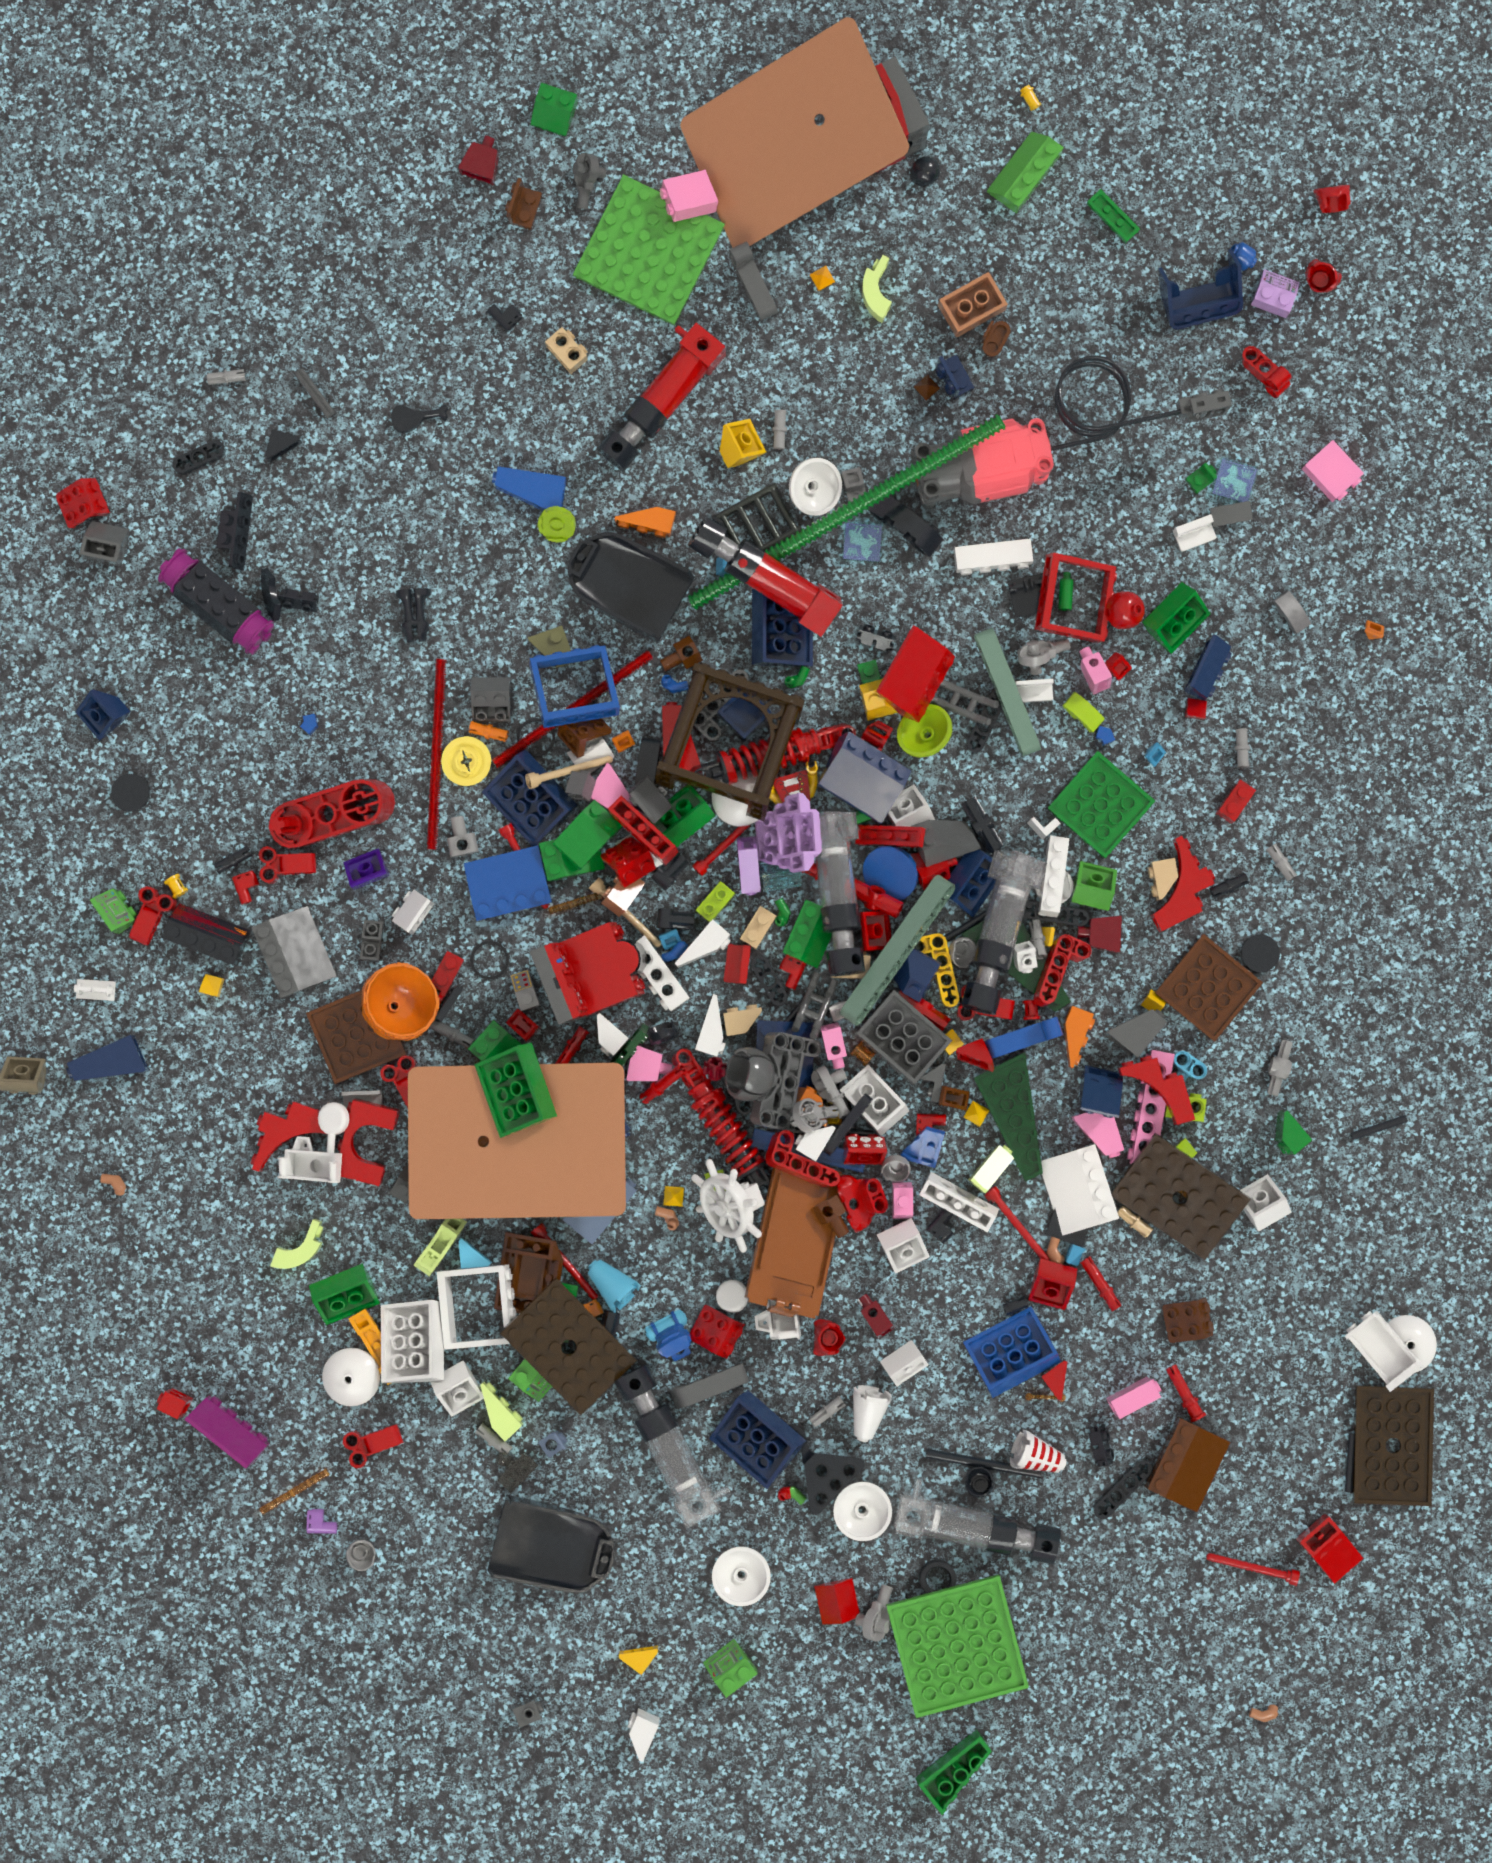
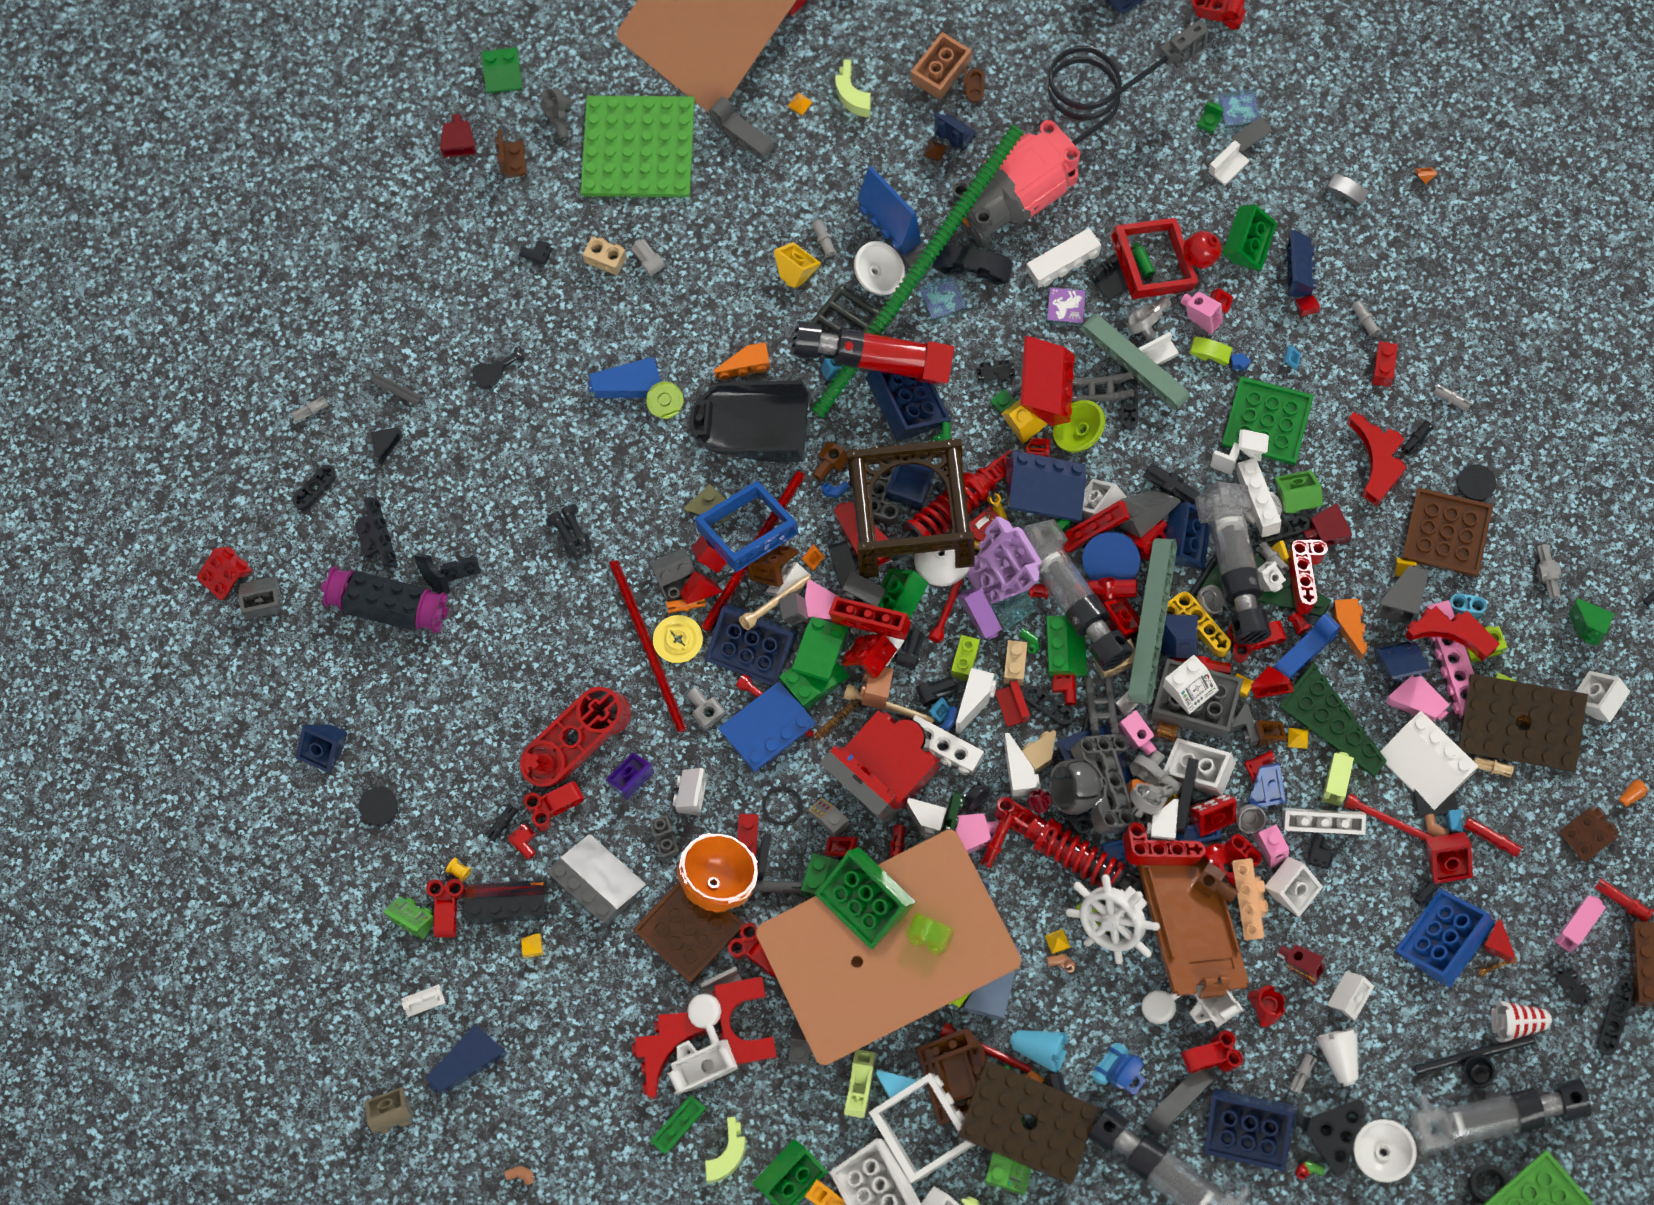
camera: 15 degrees left, 15 degrees down
(268, 1204) = (678, 1125): none -> green plate
(310, 723) = (518, 670): blue piece -> none
(505, 724) = (699, 588): none -> red slope
(526, 694) = (708, 555): none -> red slope
(556, 1150) = (929, 933): none -> clear neon green brick
(606, 375) = (649, 260): none -> light grey piece
(664, 394) = (723, 208): red piece -> none
(689, 196) = (653, 85): bright pink brick -> none
(716, 1331) = (1160, 1046): red bracket -> none
(757, 1361) = (1214, 1054): none -> red piece
(848, 437) = (888, 212): none -> blue slope
(858, 1241) = (1250, 898): none -> light nougat bracket
(901, 1027) = (1190, 684): none -> white slope
(972, 604) = (1066, 306): none -> tile
(1072, 826) = (1253, 443): none -> white slope
(1164, 875) = (1355, 454): tan slope -> none
(1246, 1302) = (1634, 792): none -> orange cone
(1333, 471) = (1320, 63): bright pink brick -> none

